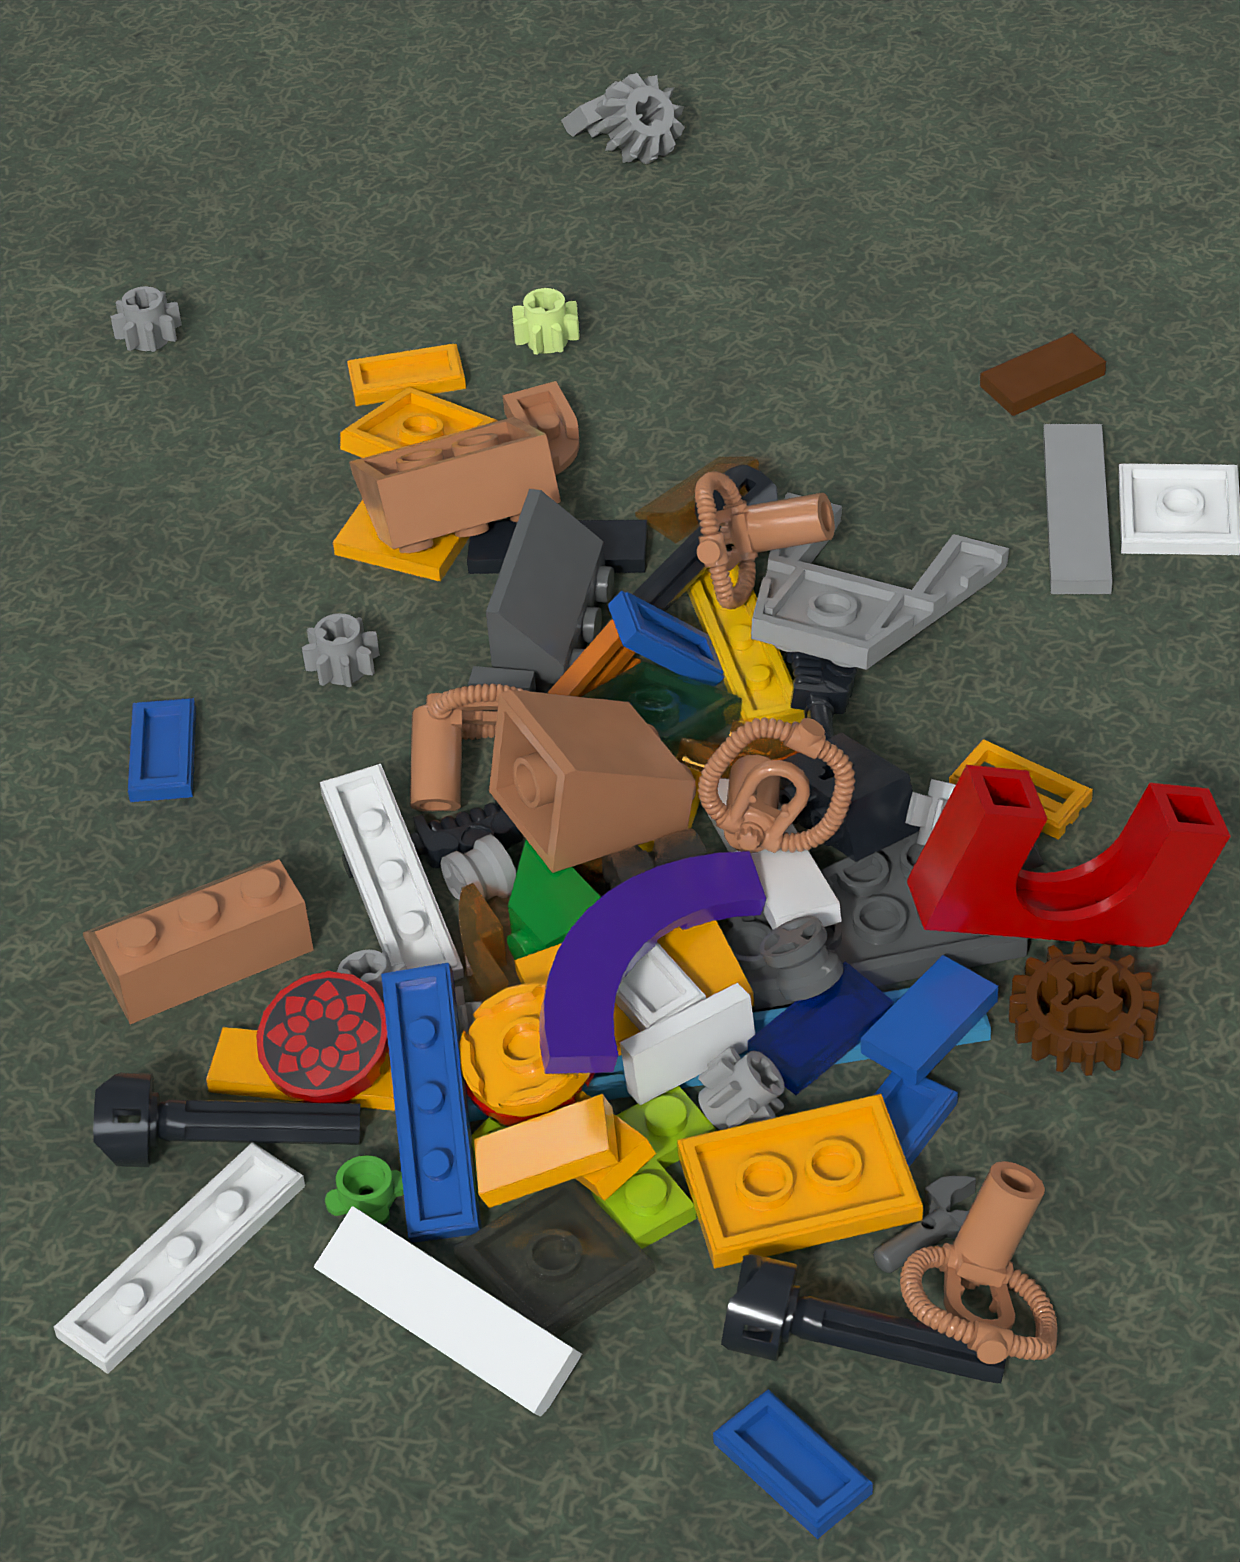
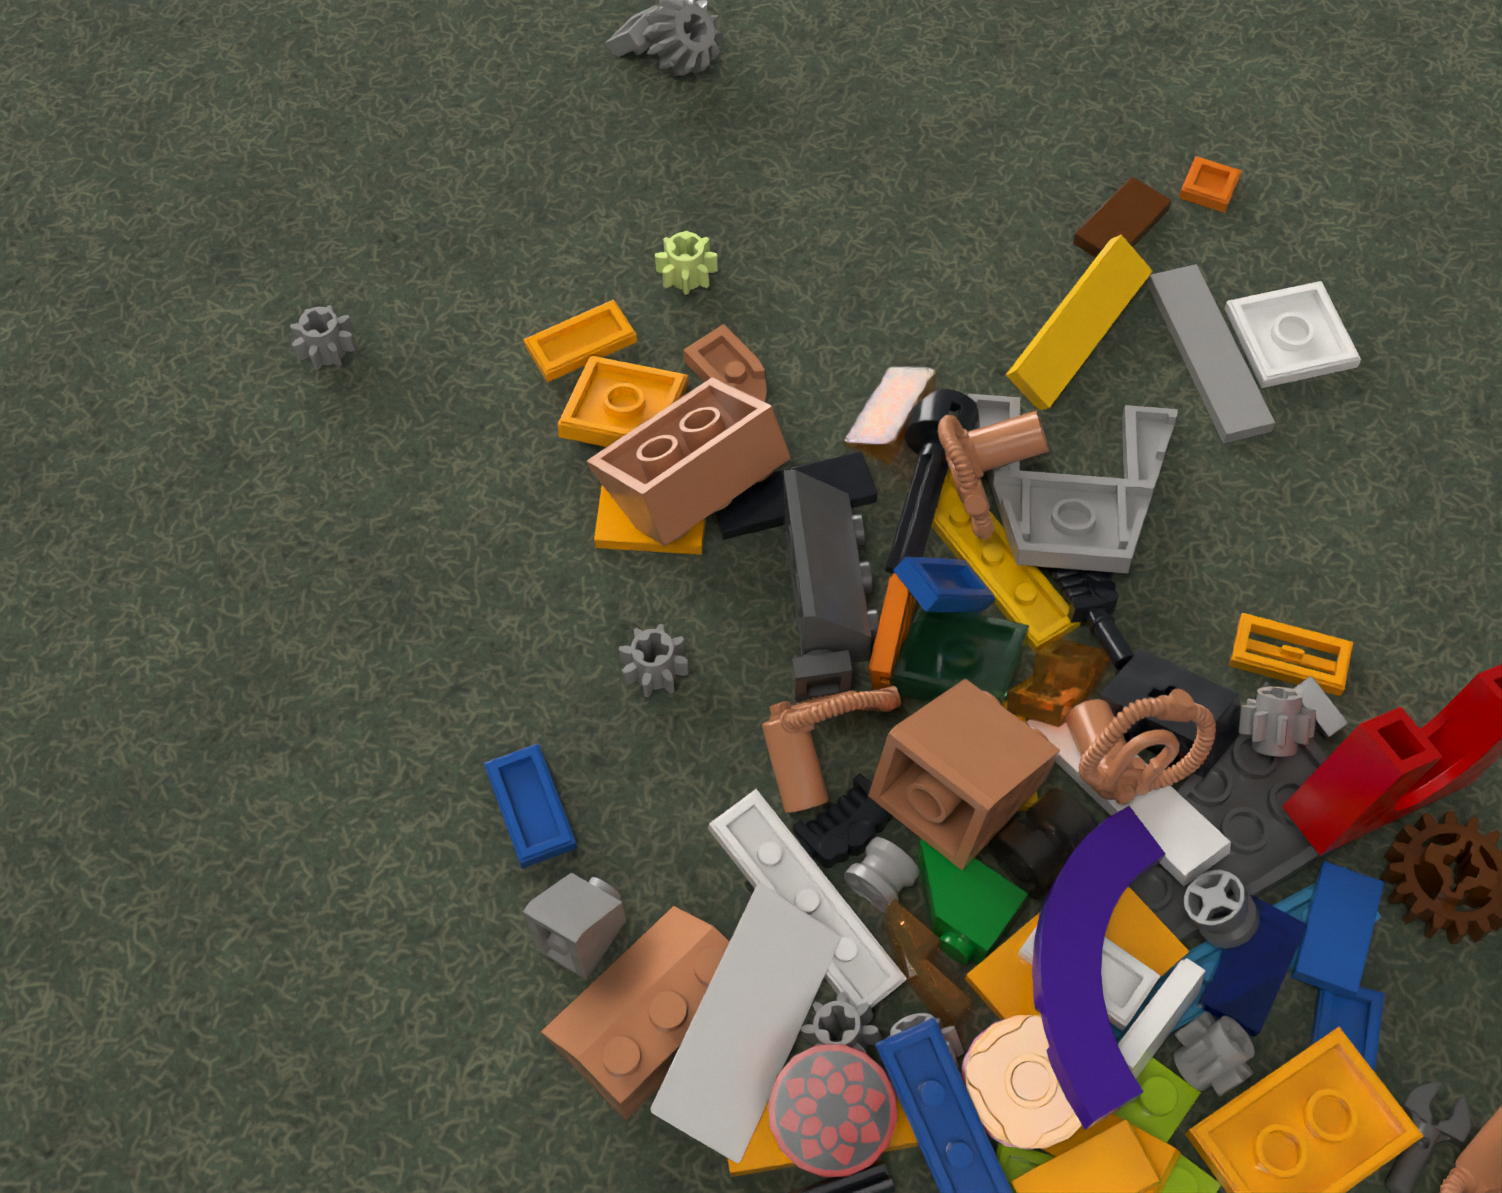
camera: 20 degrees left, 15 degrees up
(151, 838) = (575, 922): none -> light grey slope
(285, 927) = (746, 1024): none -> white sticker
(940, 450) = (1079, 323): none -> yellow tile
(1161, 357) = (1210, 184): none -> orange tile

